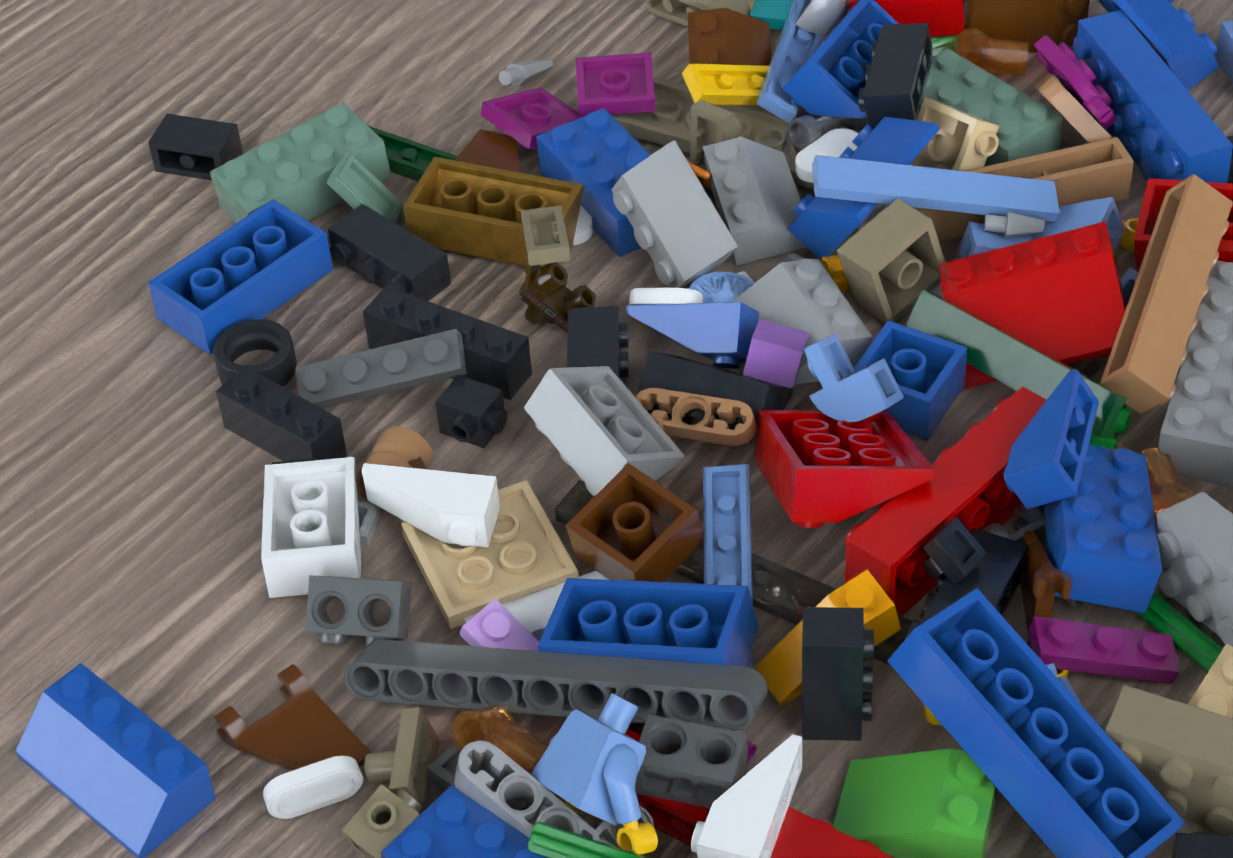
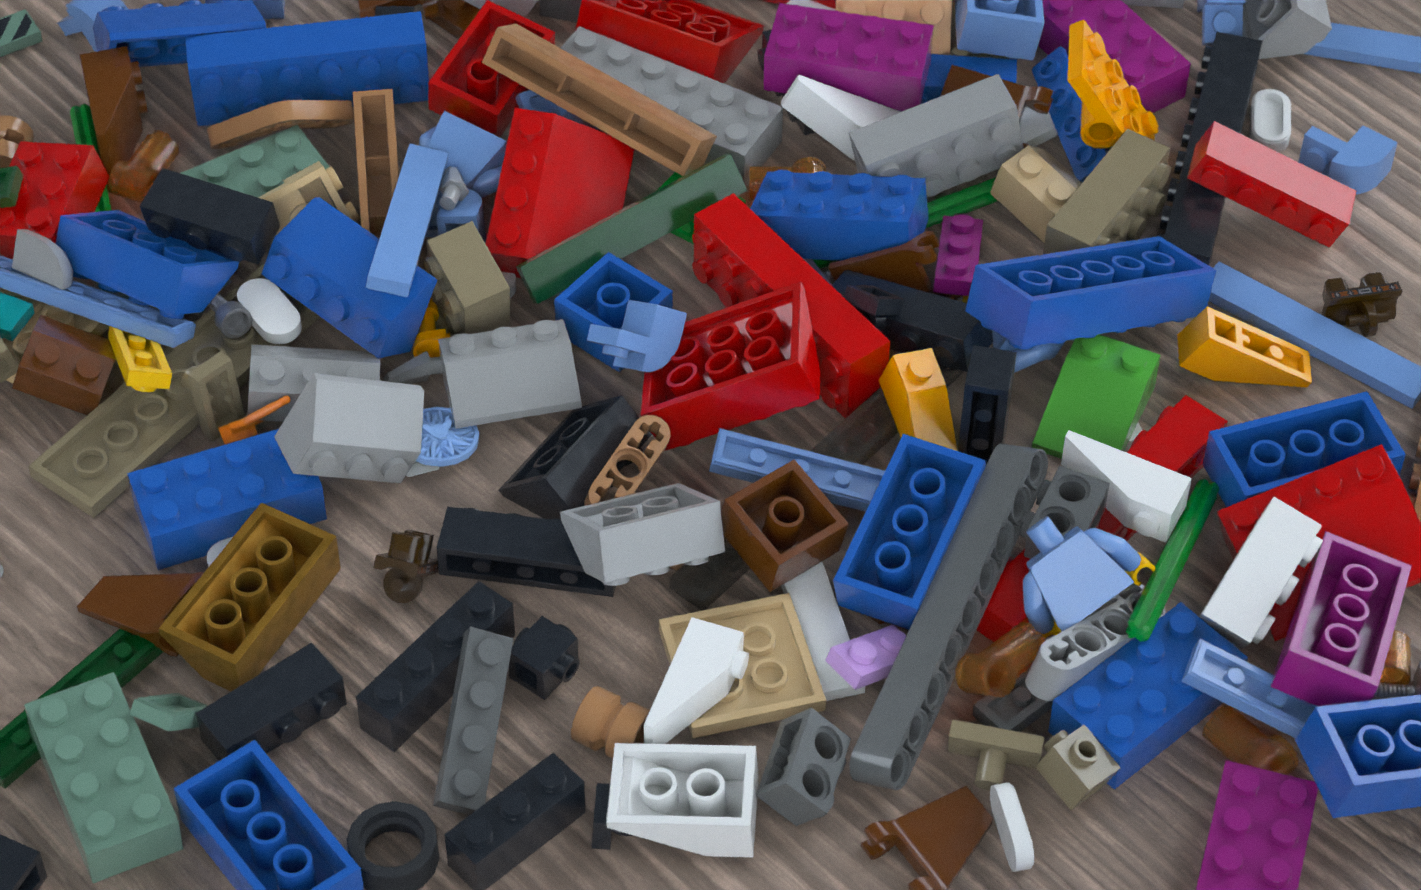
camera: 85 degrees left, 5 degrees up
(528, 114) = (87, 550): magenta plate -> none
(545, 236) = (353, 536): dark tan tile -> none
(615, 83) = (79, 462): magenta plate -> none
(654, 296) = (438, 474): white tile -> none
(711, 329) = (500, 442): slope -> none
(775, 353) = (561, 393): medium lavender panel -> none
(1053, 447) = (793, 210): blue slope -> none
(1076, 79) = (246, 95): magenta plate -> none

